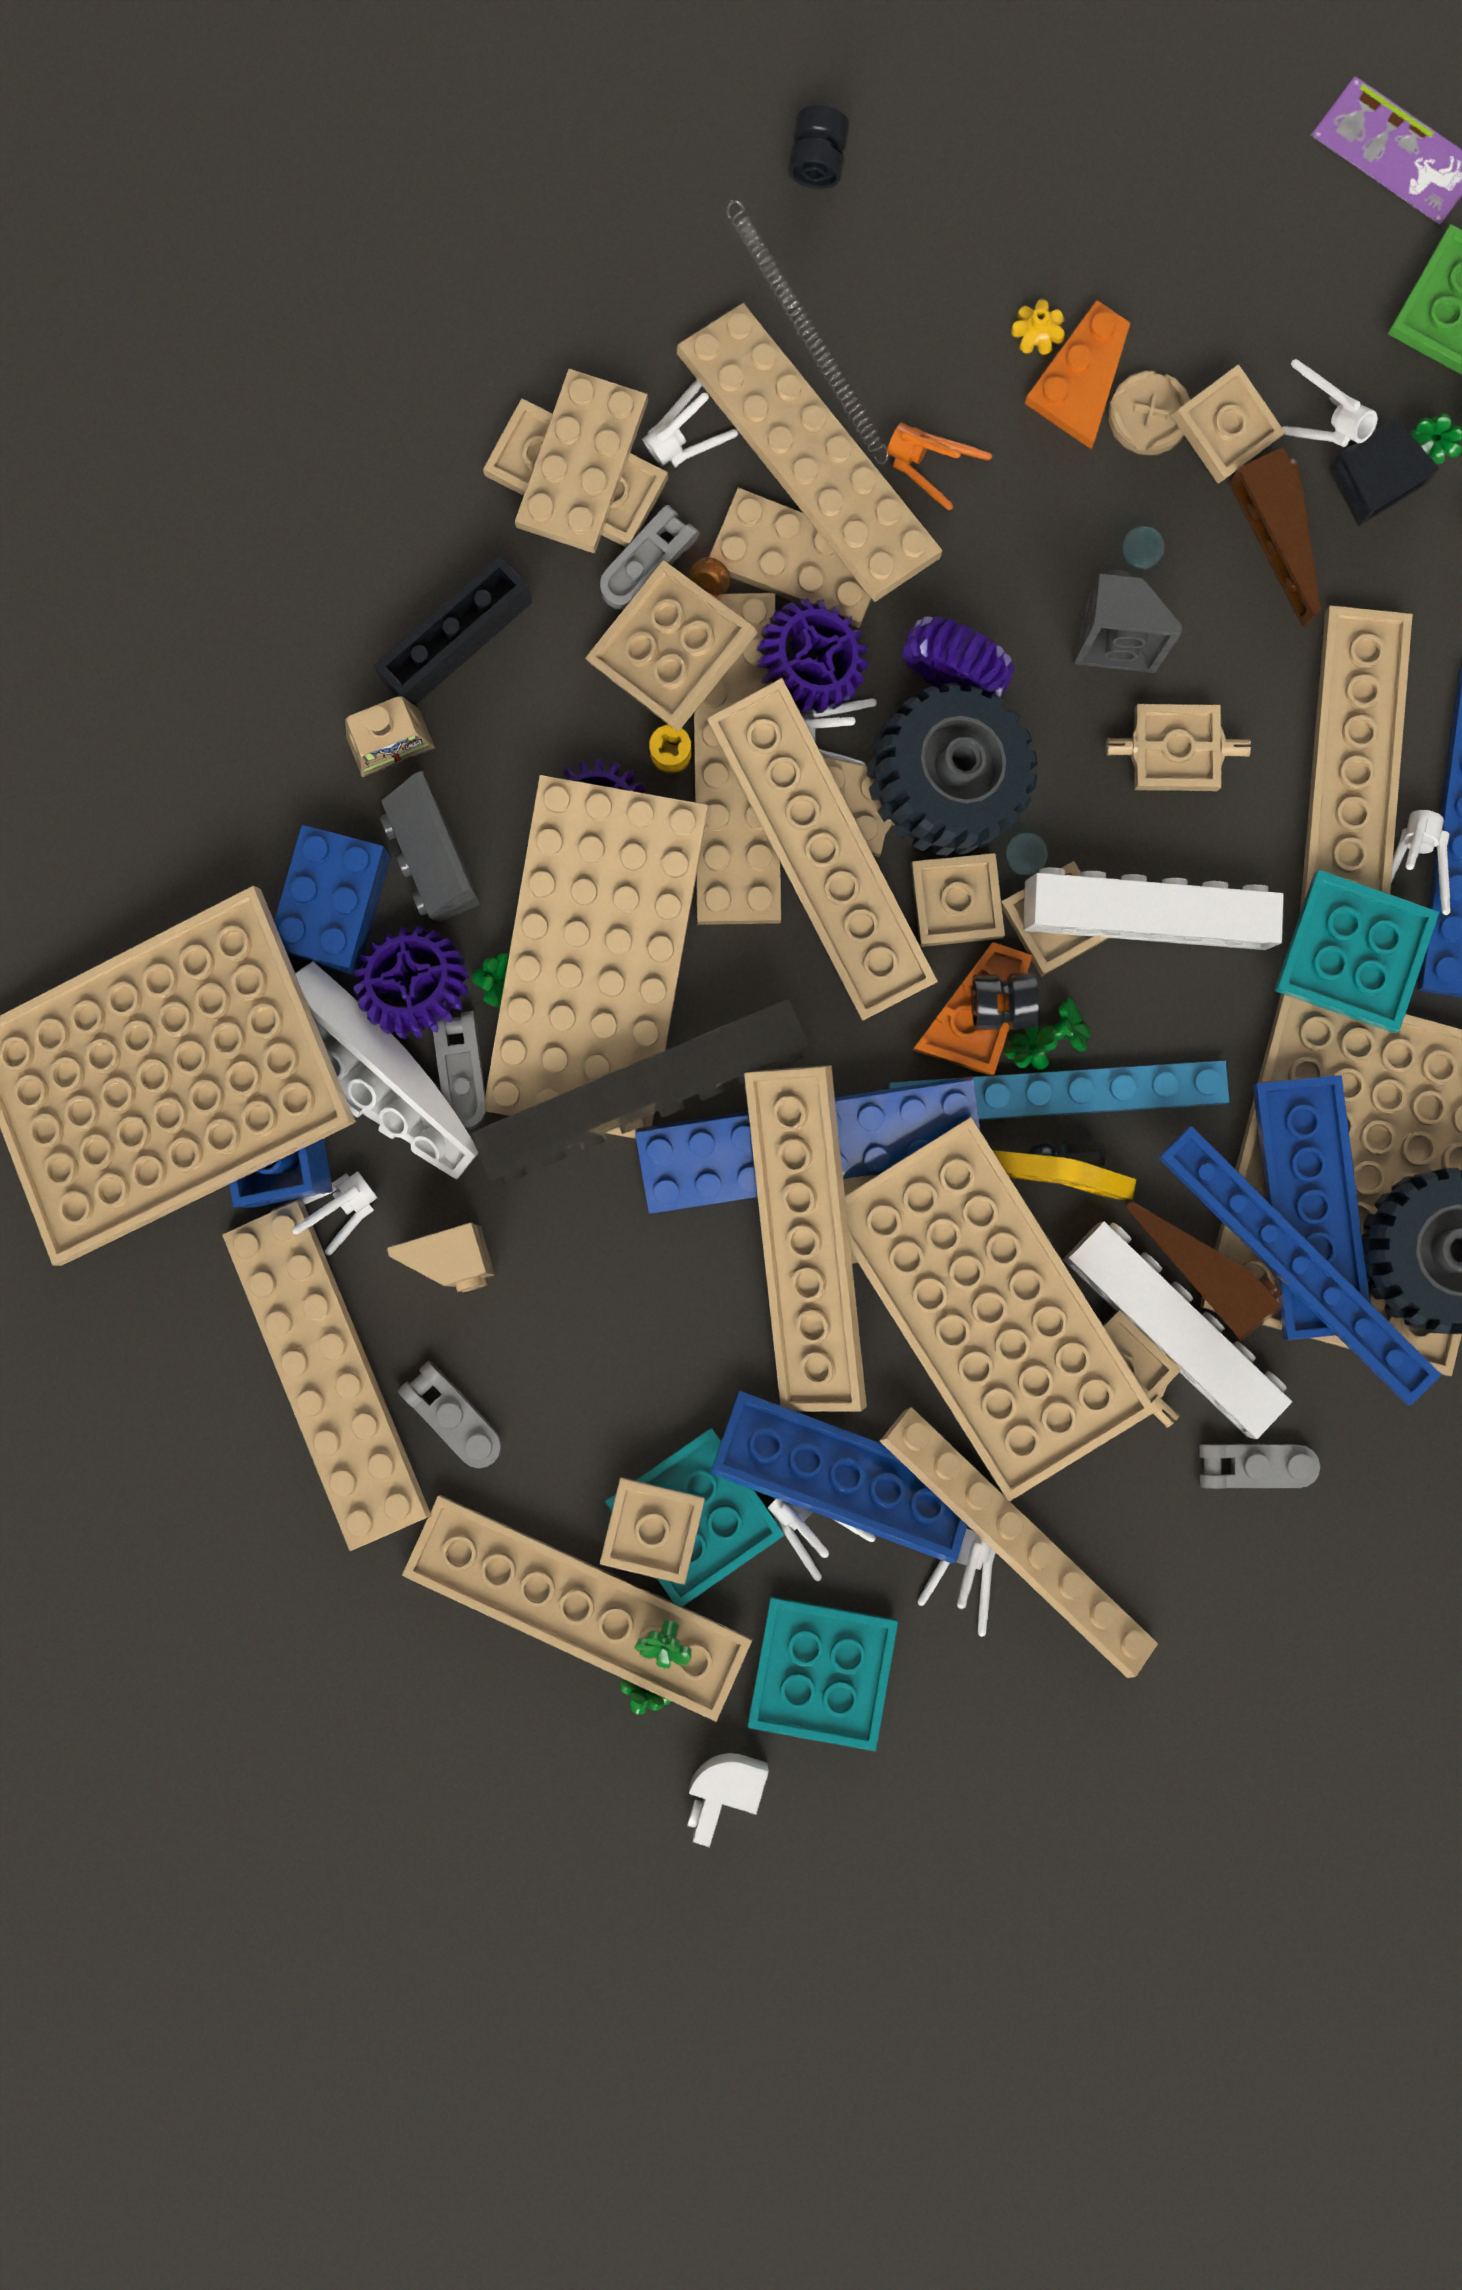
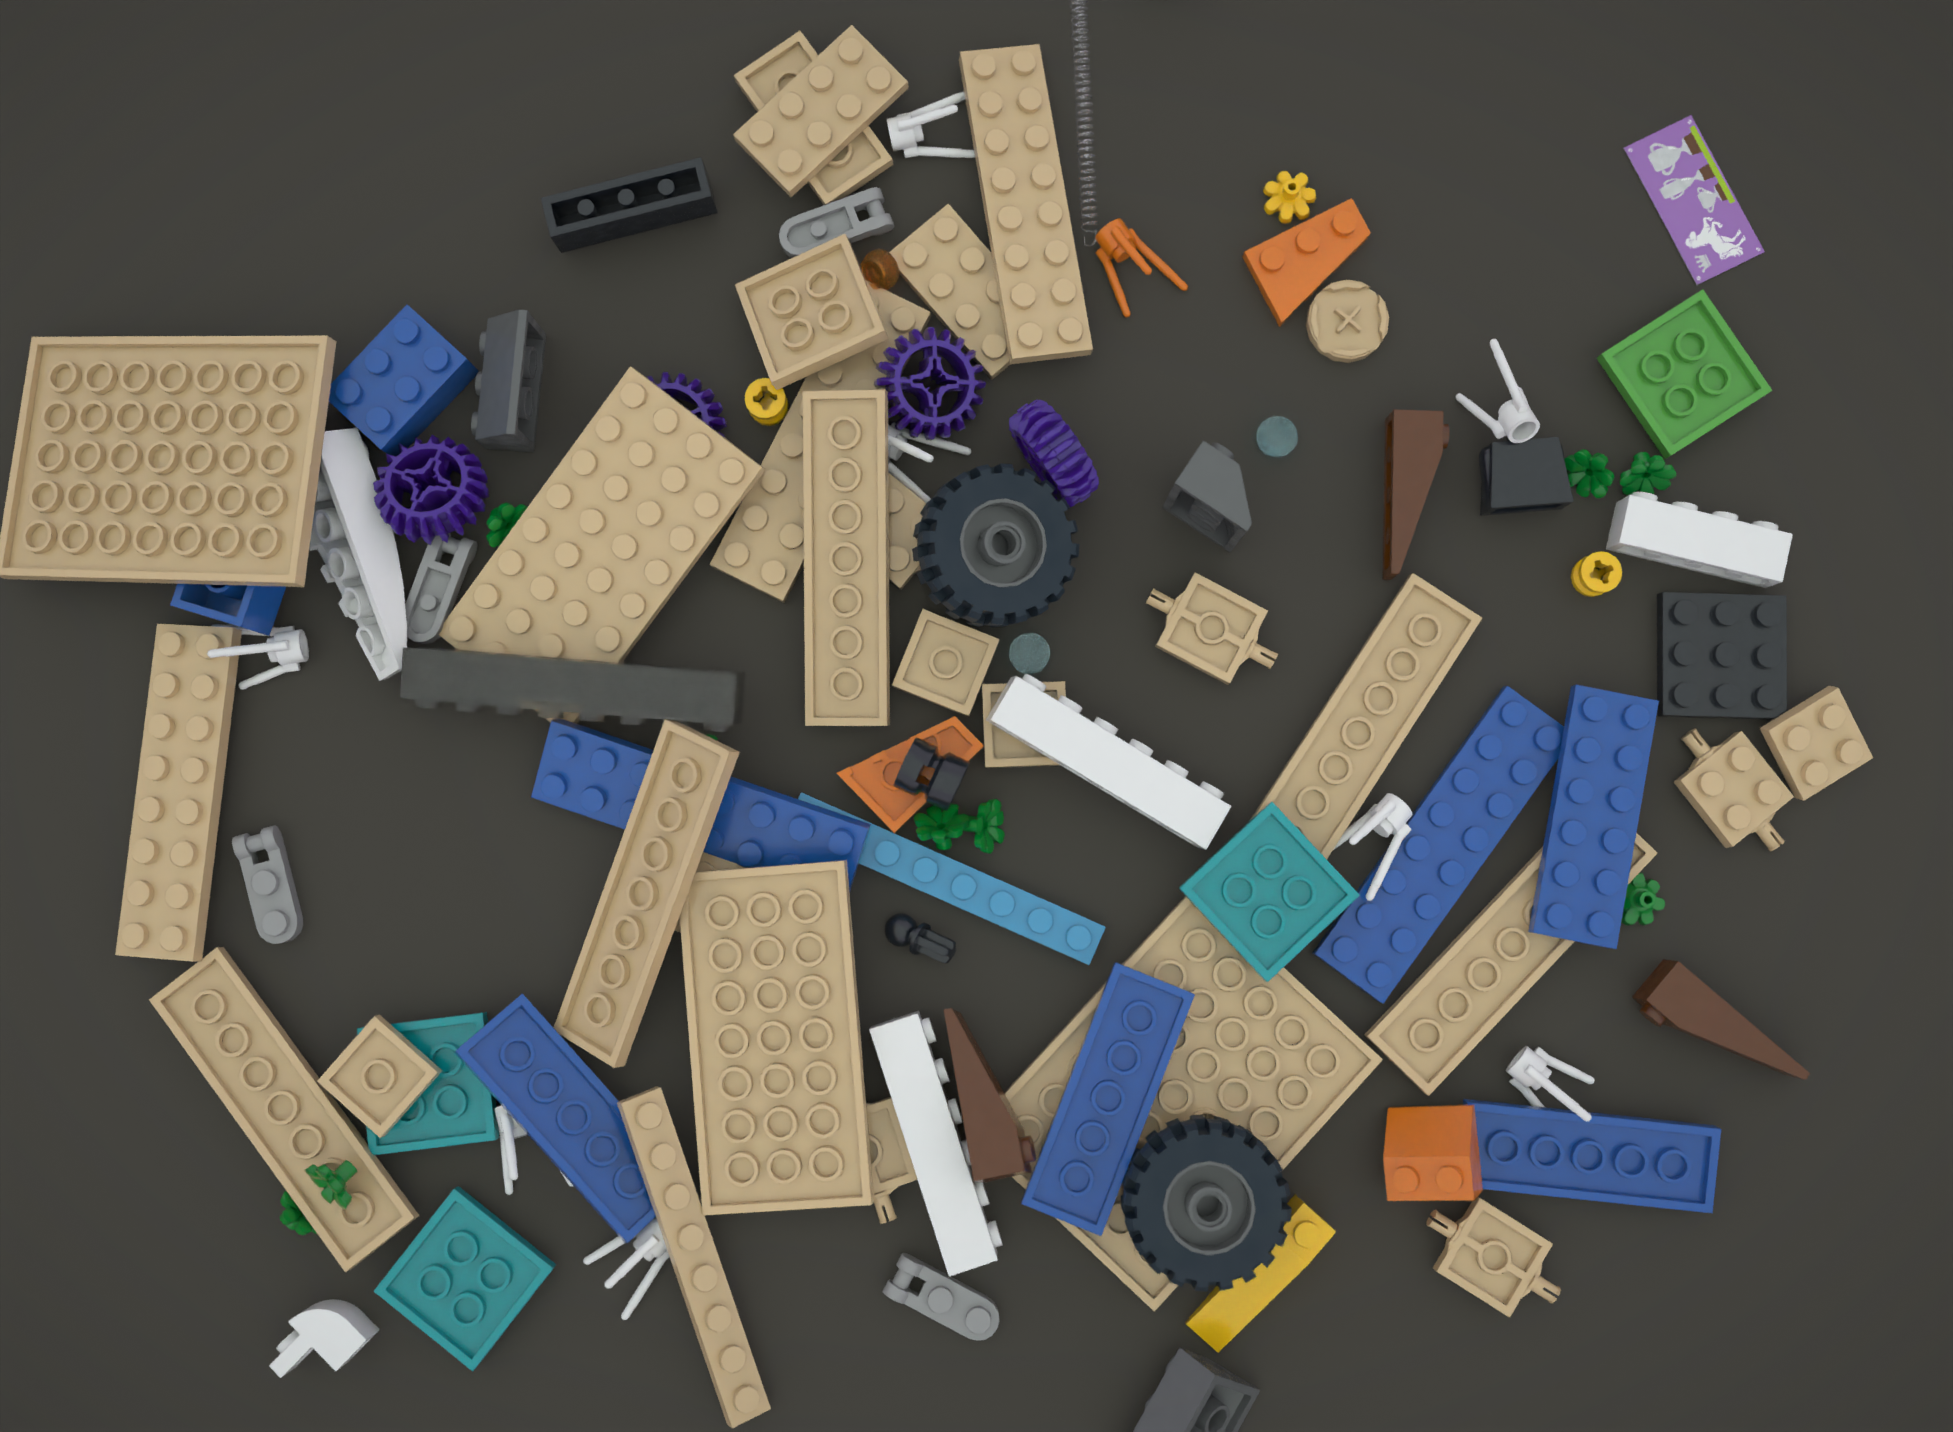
camera: 30 degrees right, 0 degrees up
(387, 735) = (522, 264): tan torso -> none
(449, 1257) = (335, 749): tan slope -> none
(1068, 1173) = (905, 955): yellow beam -> none
(1228, 424) = (1408, 366): tan plate -> none
(1300, 1266) = (1063, 1145): blue plate -> none

